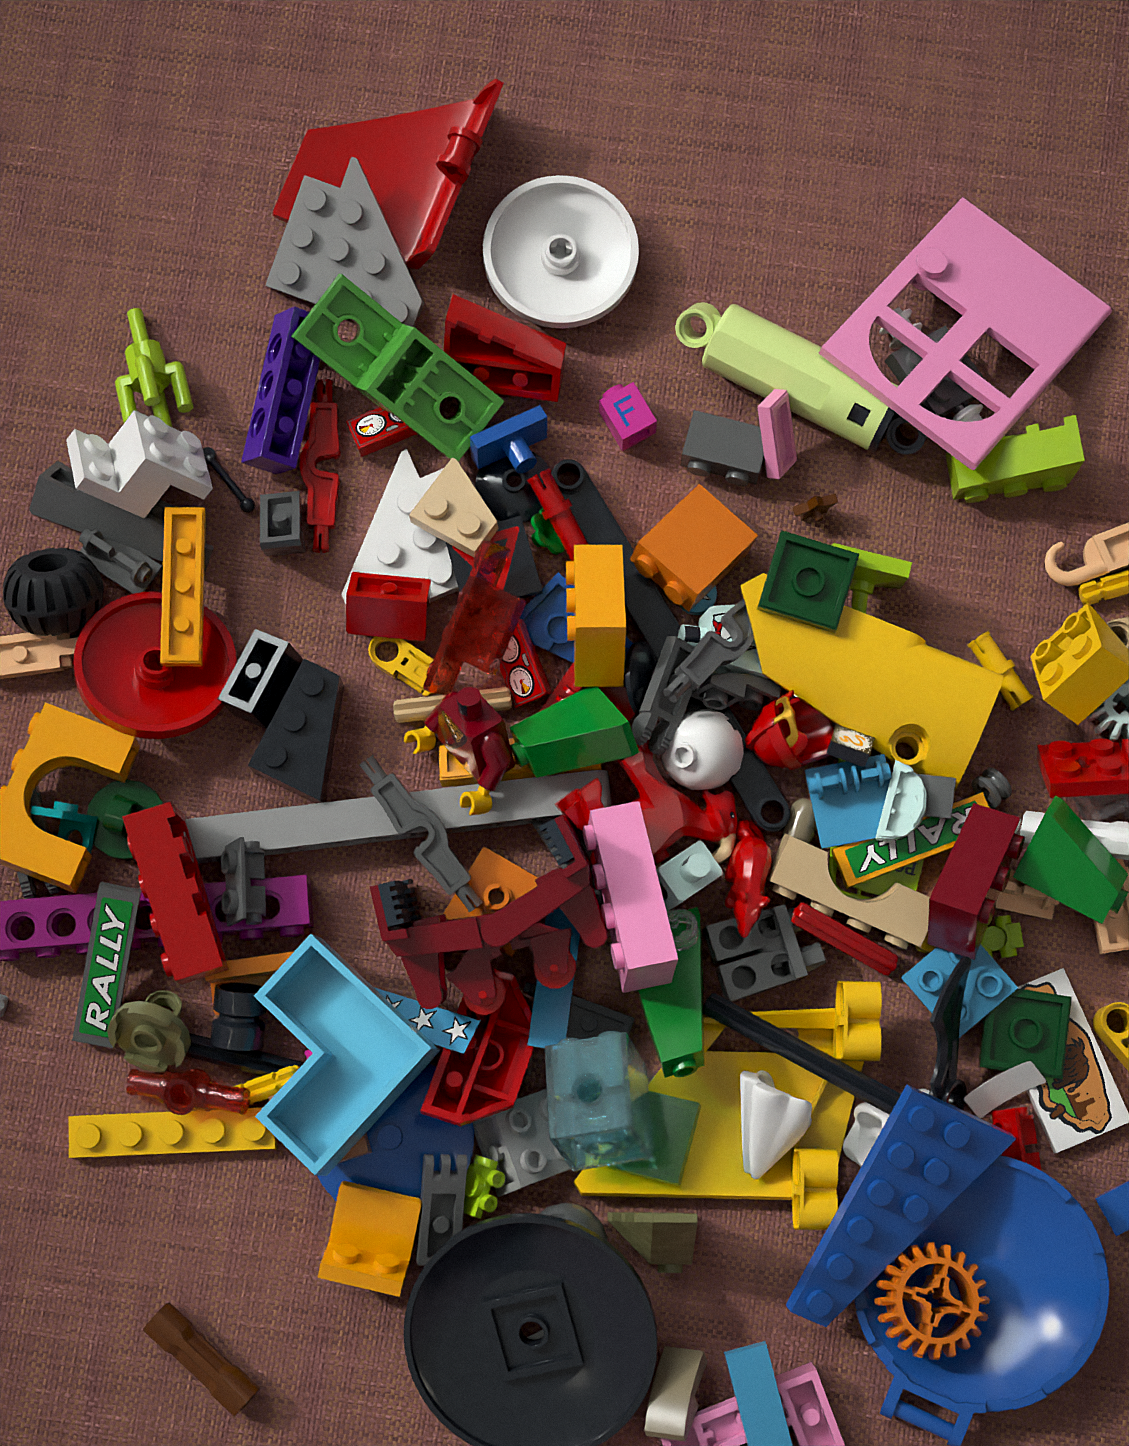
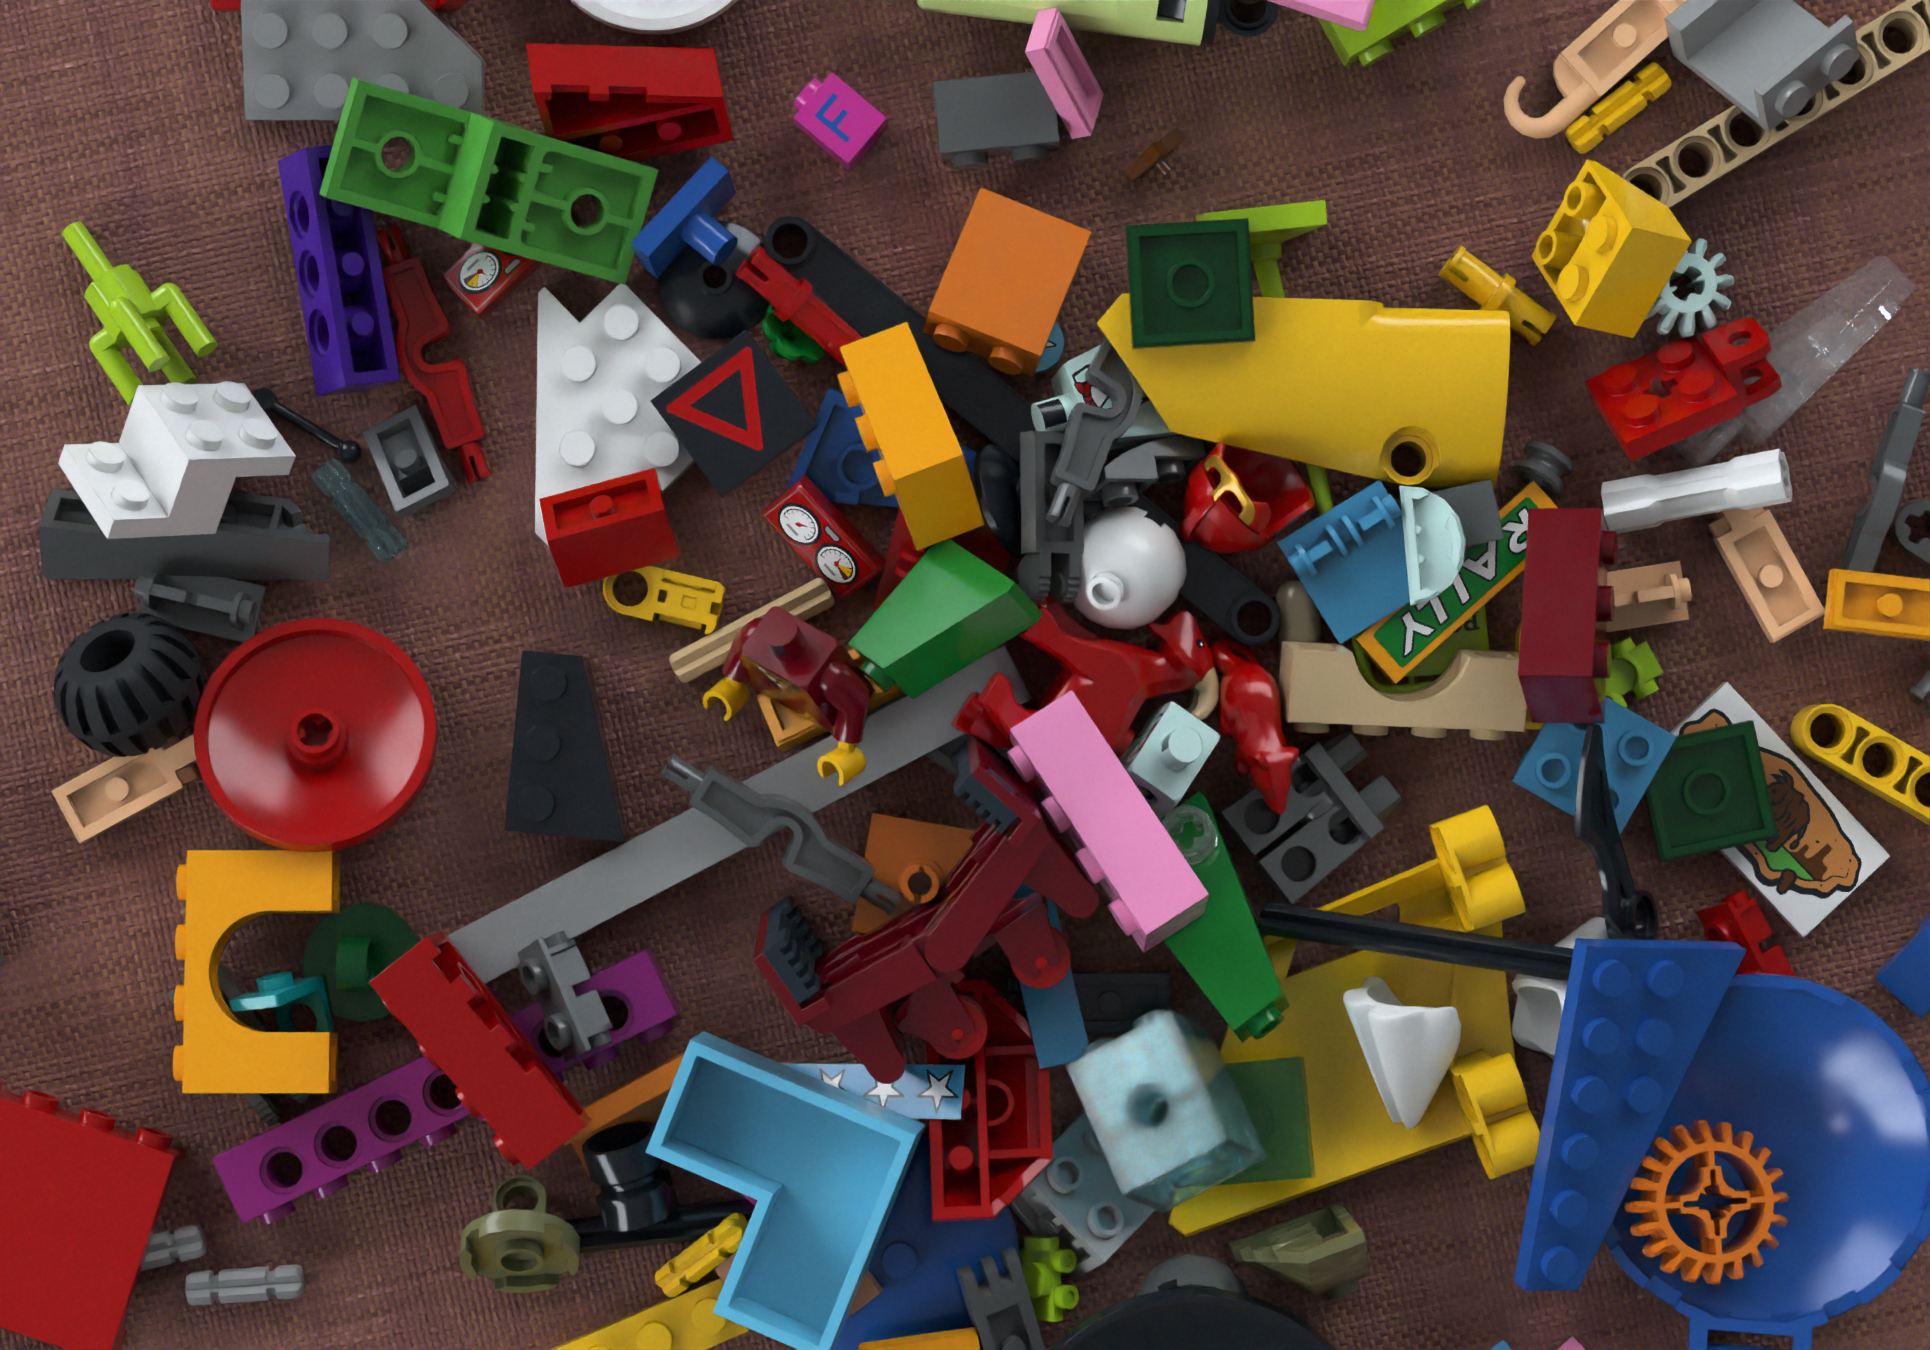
camera: 20 degrees left, 10 degrees up
(106, 962) = (420, 1173): tile -> none
(171, 1092) = (623, 1292): clear red pin -> none
(183, 586) = (311, 611): light orange tile -> none
(238, 542) = (359, 510): none -> clear light blue axle
(260, 678) = (472, 699): black brick -> none
(455, 511) = (652, 358): tan wing -> none
(479, 624) = (751, 510): clear red bracket -> none
(844, 939) = (1416, 757): red axle -> none
(850, 745) = (1330, 489): black tile -> none
(1003, 1088) = (1702, 877): white sticker -> none
(1072, 865) = (1694, 543): green slope -> none

